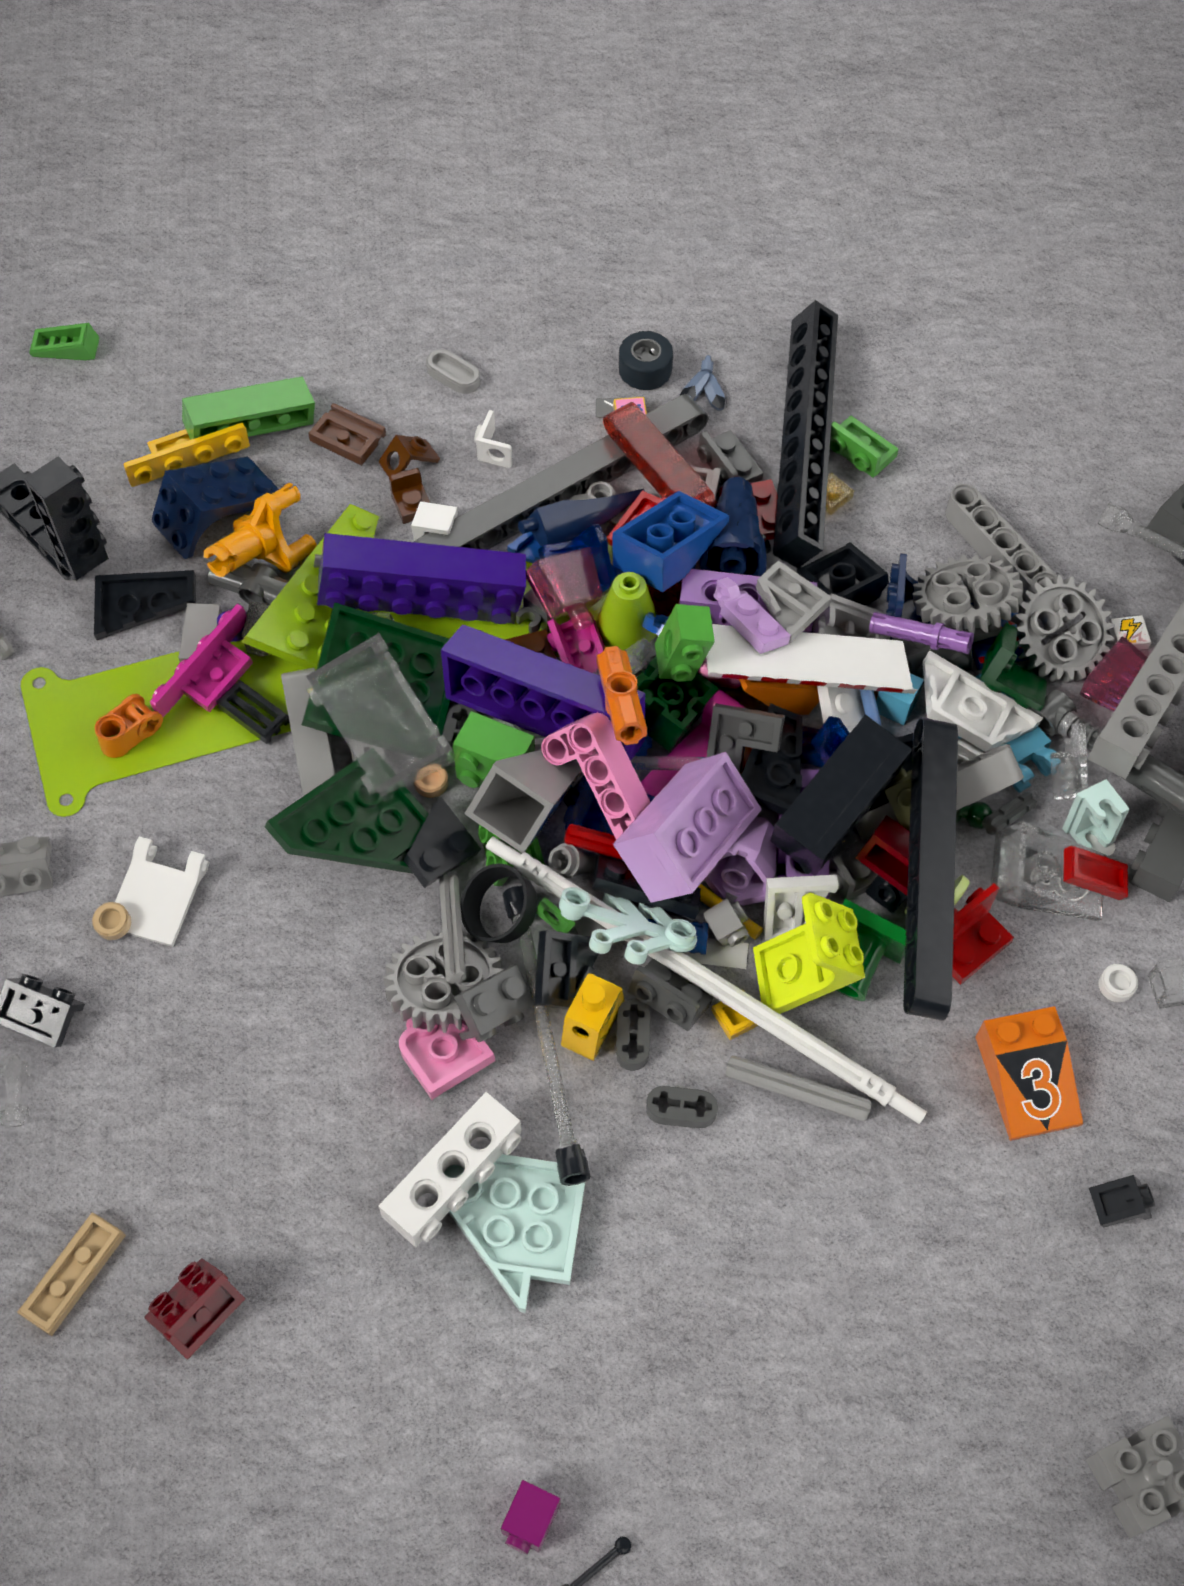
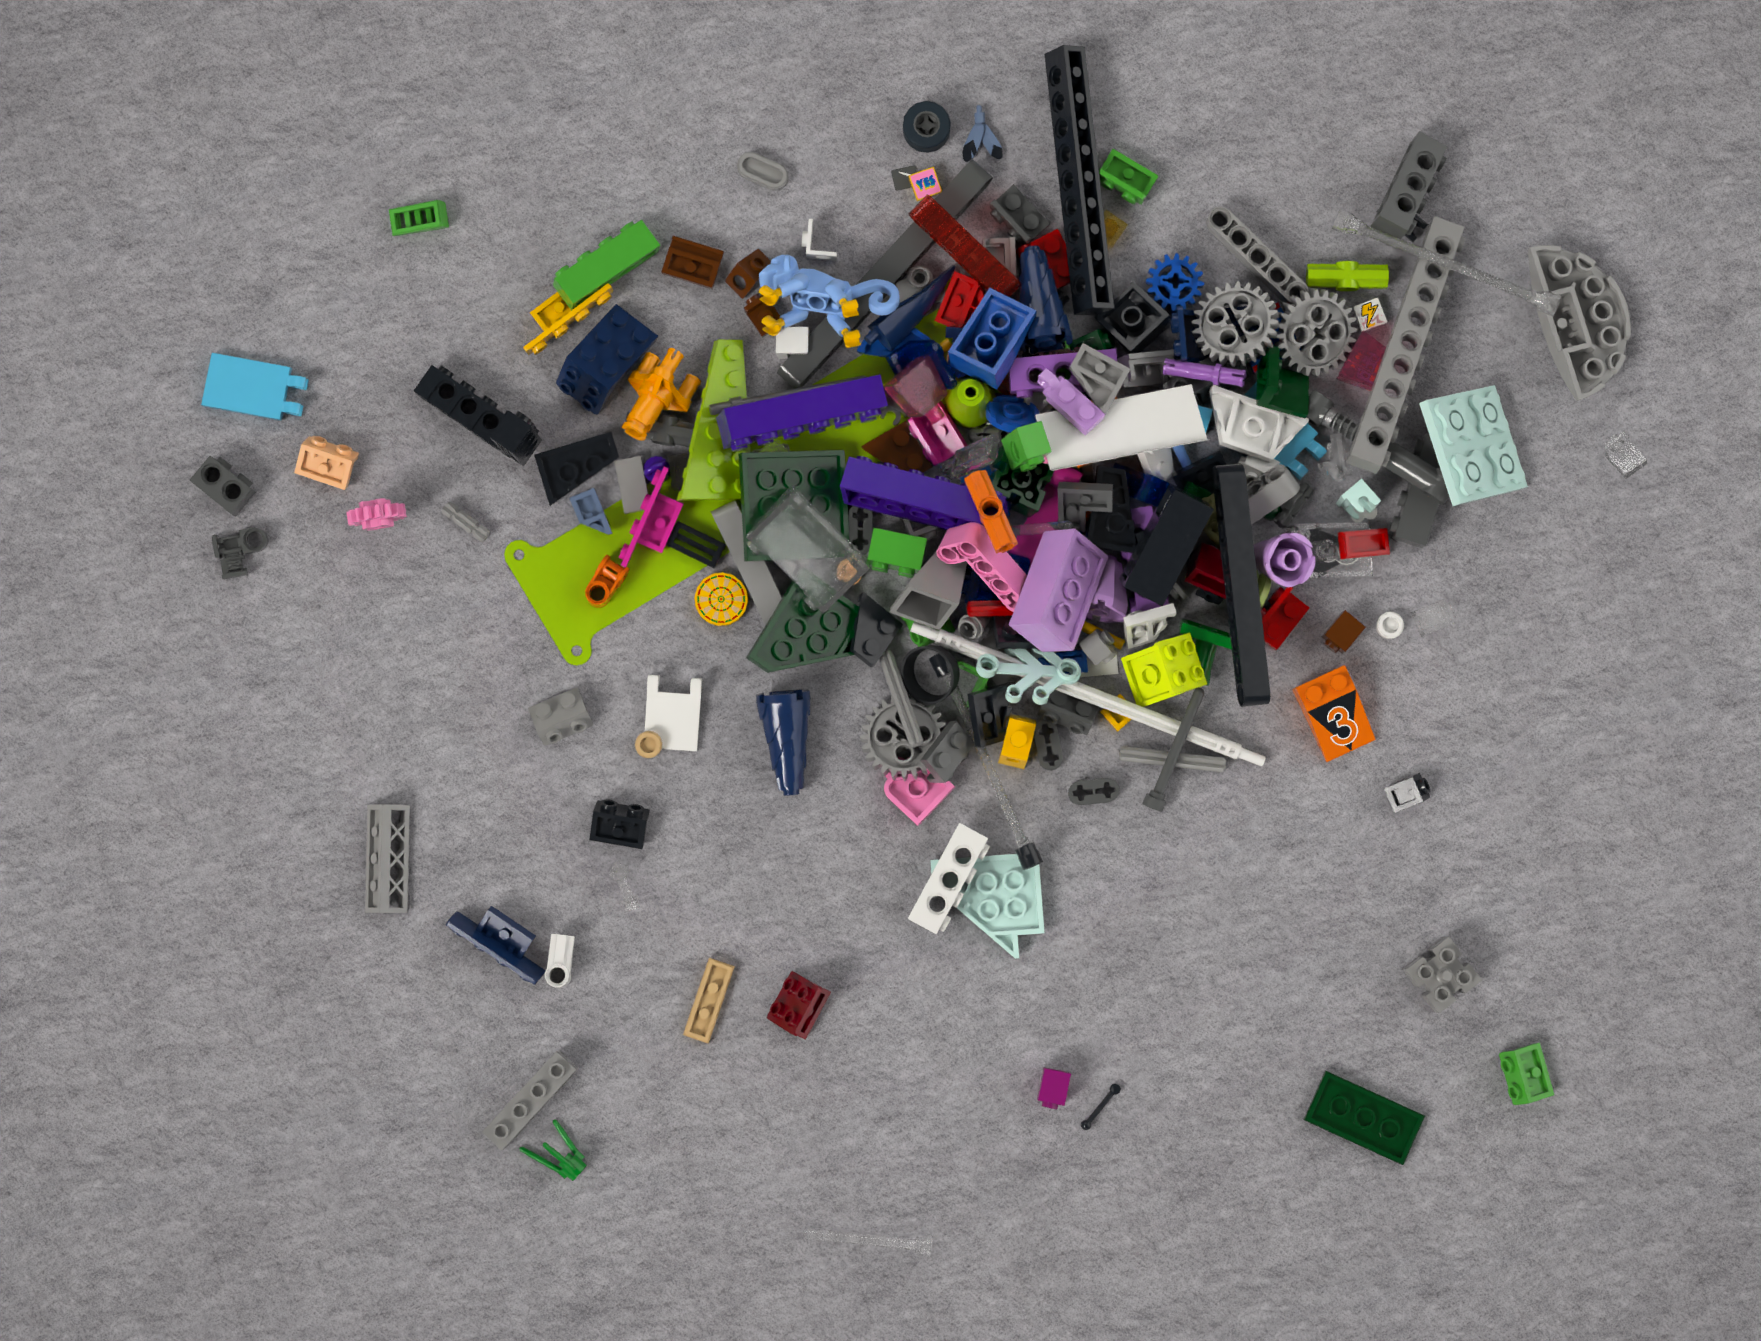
camera: 10 degrees left, 25 degrees up
(140, 650) = (590, 511): none -> sand blue slope
(263, 776) = (721, 599): none -> yellow tile
(290, 939) = (786, 731): none -> dark blue cone
(477, 471) = (820, 293): none -> light blue animal
(766, 1130) = (1156, 797): none -> dark grey piece
(887, 544) = (1187, 283): none -> blue gear
(994, 850) = (1285, 559): none -> lavender cone
(1055, 974) = (1342, 632): none -> reddish brown brick
(1114, 586) = (1347, 276): none -> lime piece

